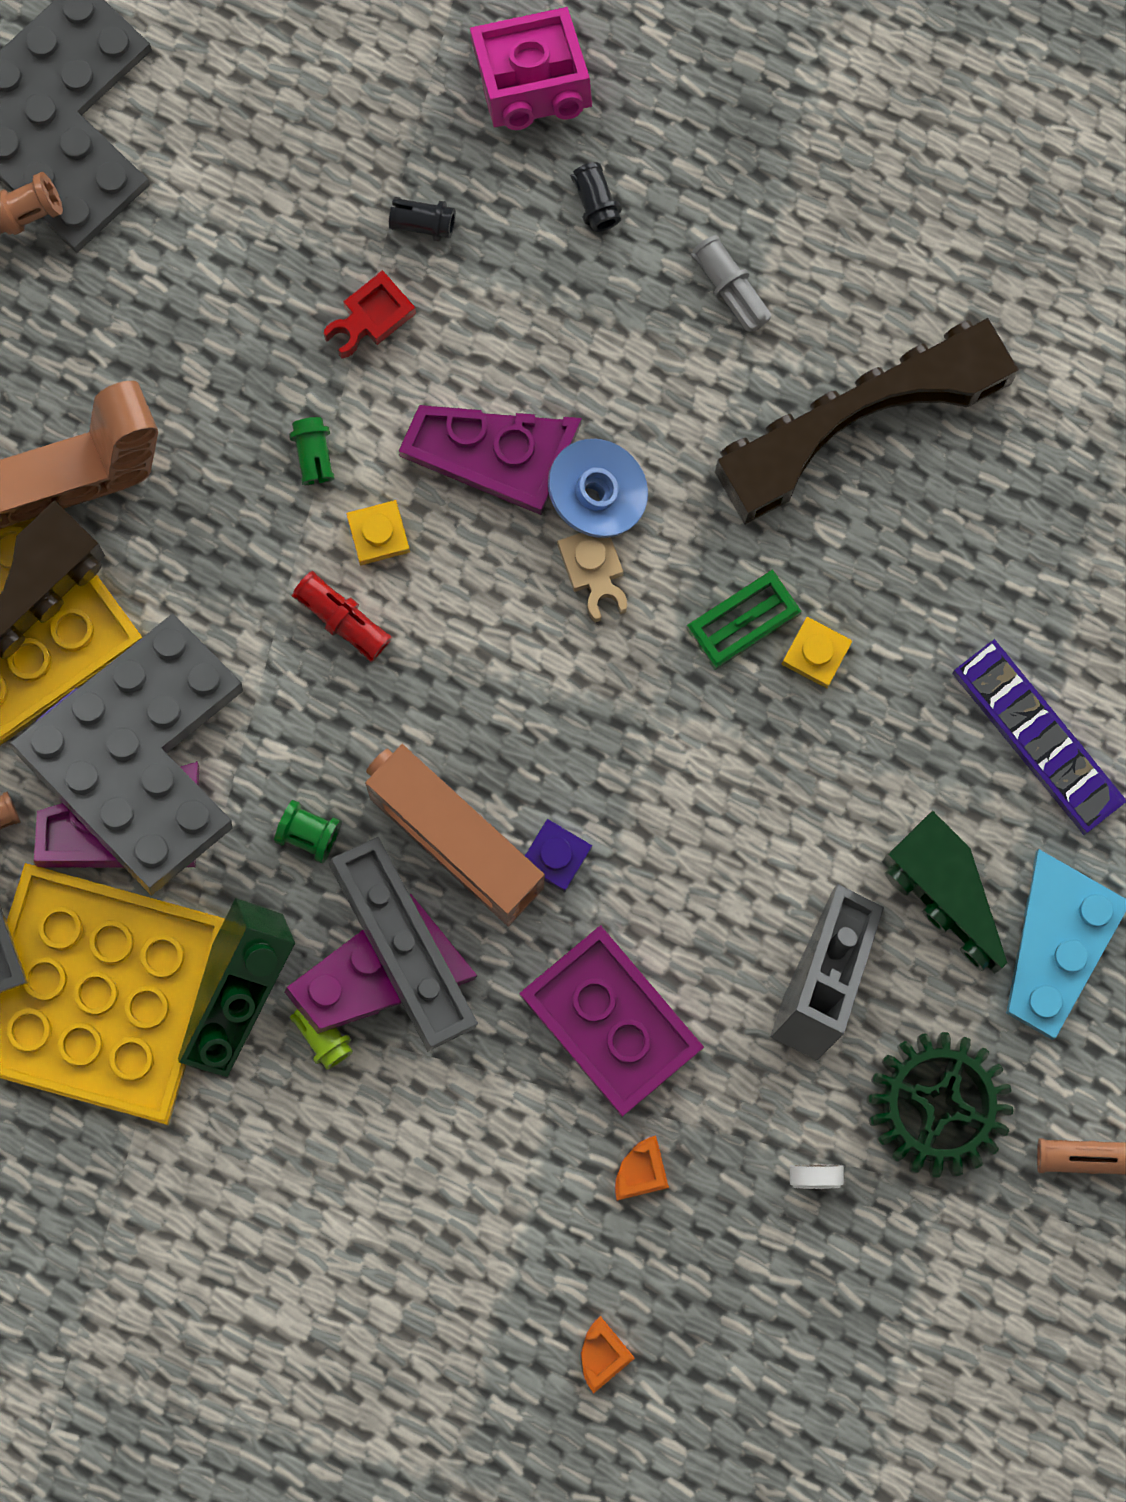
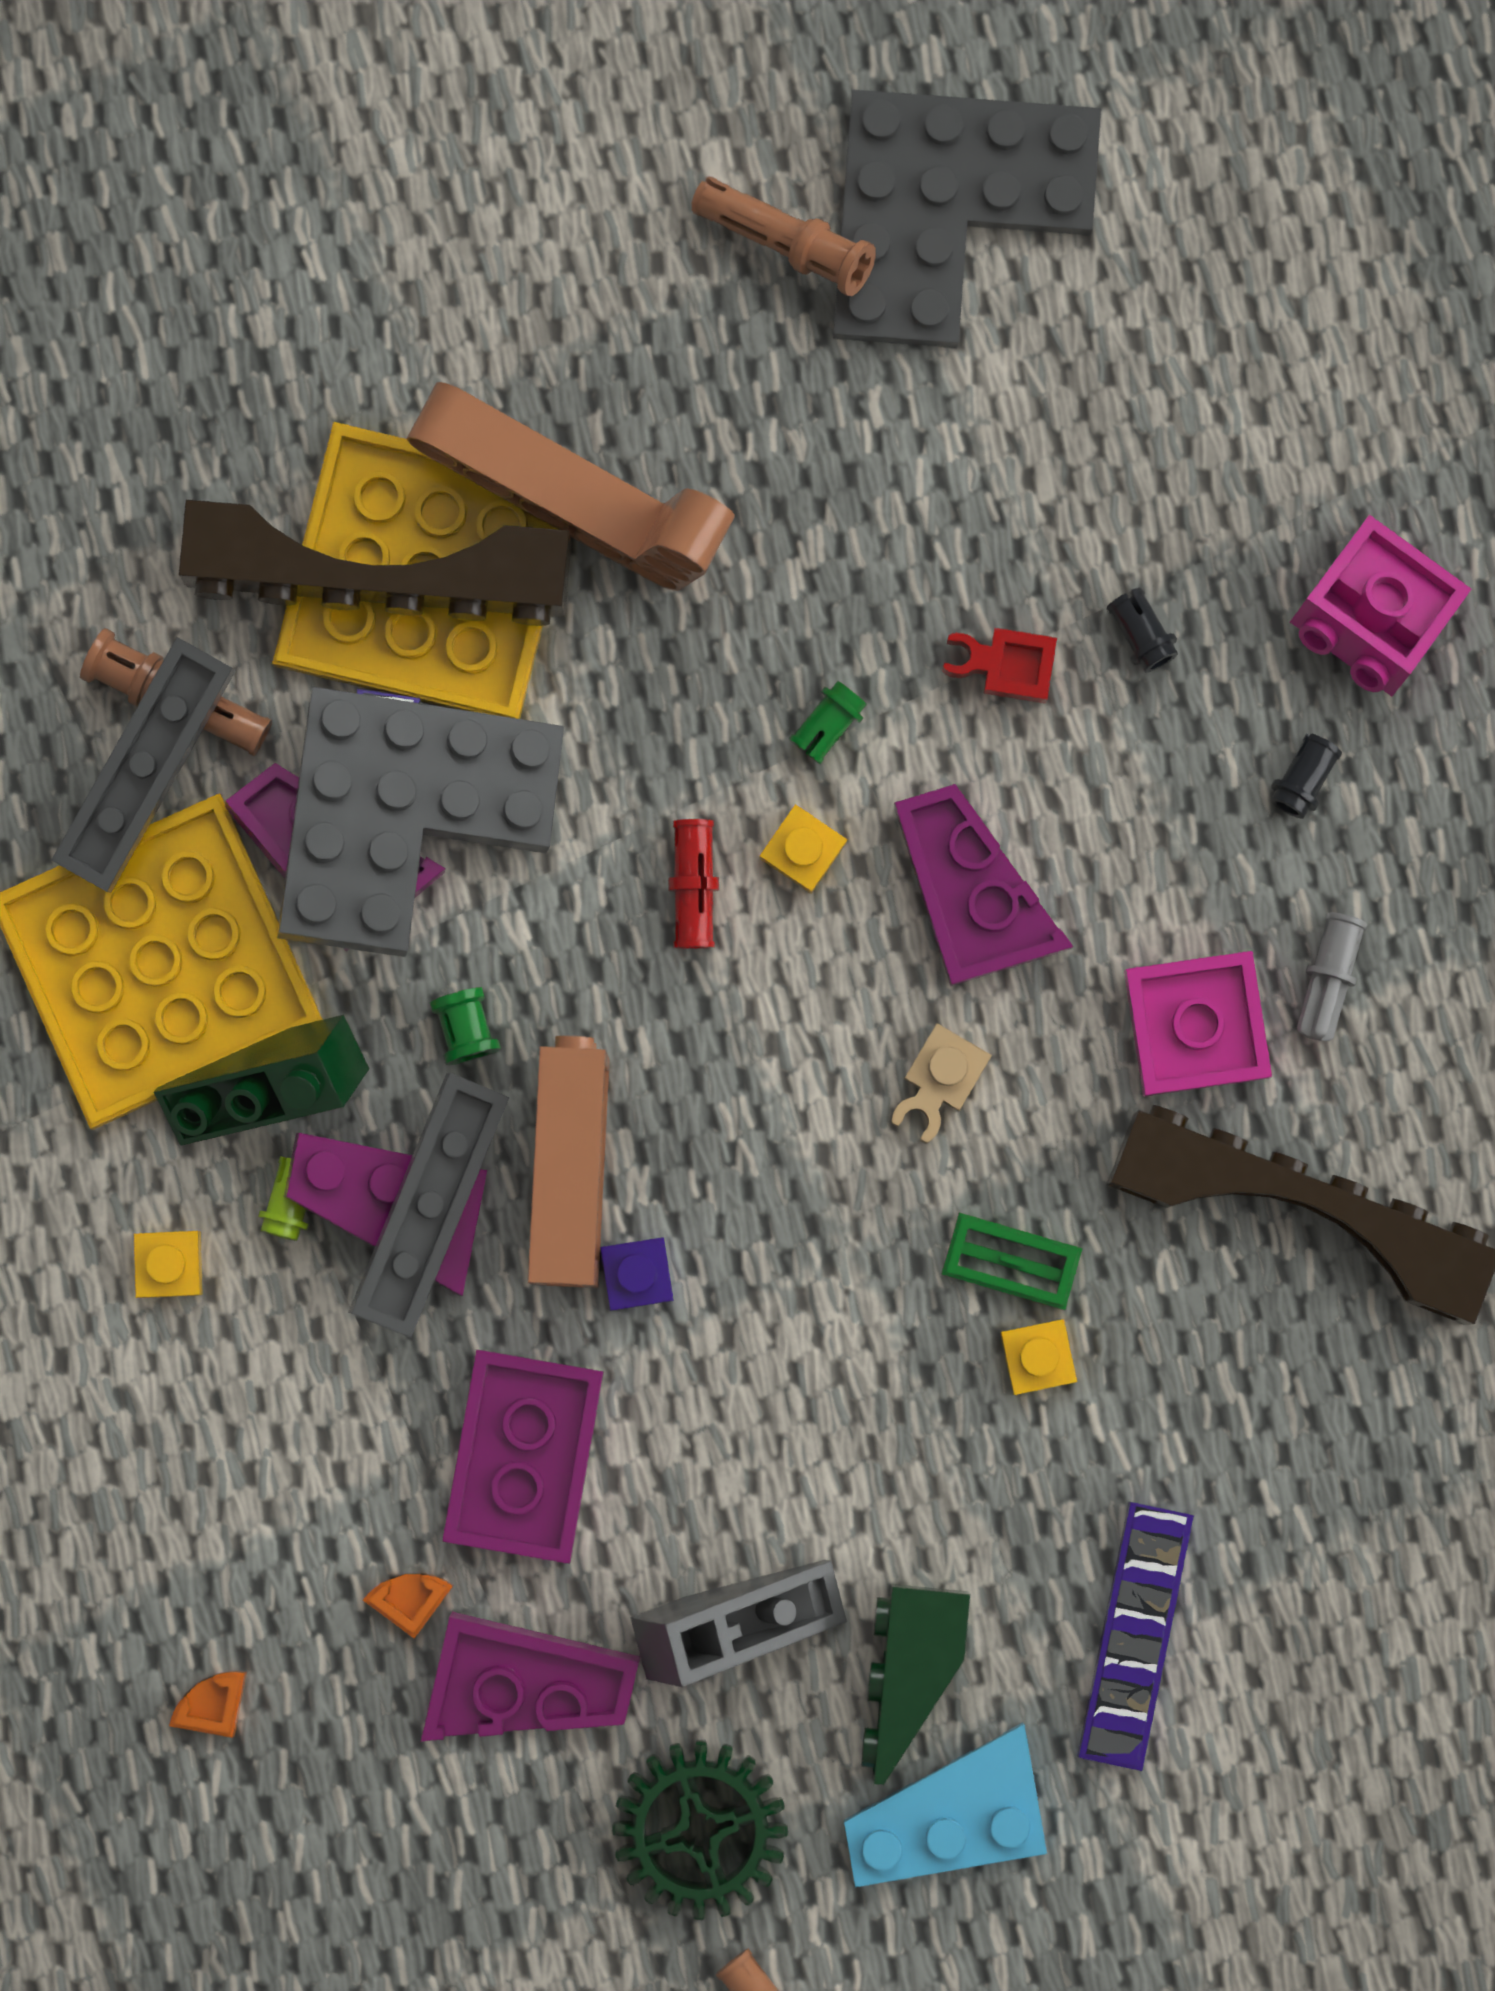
camera: 55 degrees right, 5 degrees up
(296, 1147) = (168, 1264): none -> yellow plate
(612, 474) = (1046, 1022): medium blue dish -> none
(692, 385) = (1197, 1023): none -> dark pink plate
(752, 1140) = (523, 1679): none -> magenta wing
(817, 1176) = (537, 1768): white tile -> none

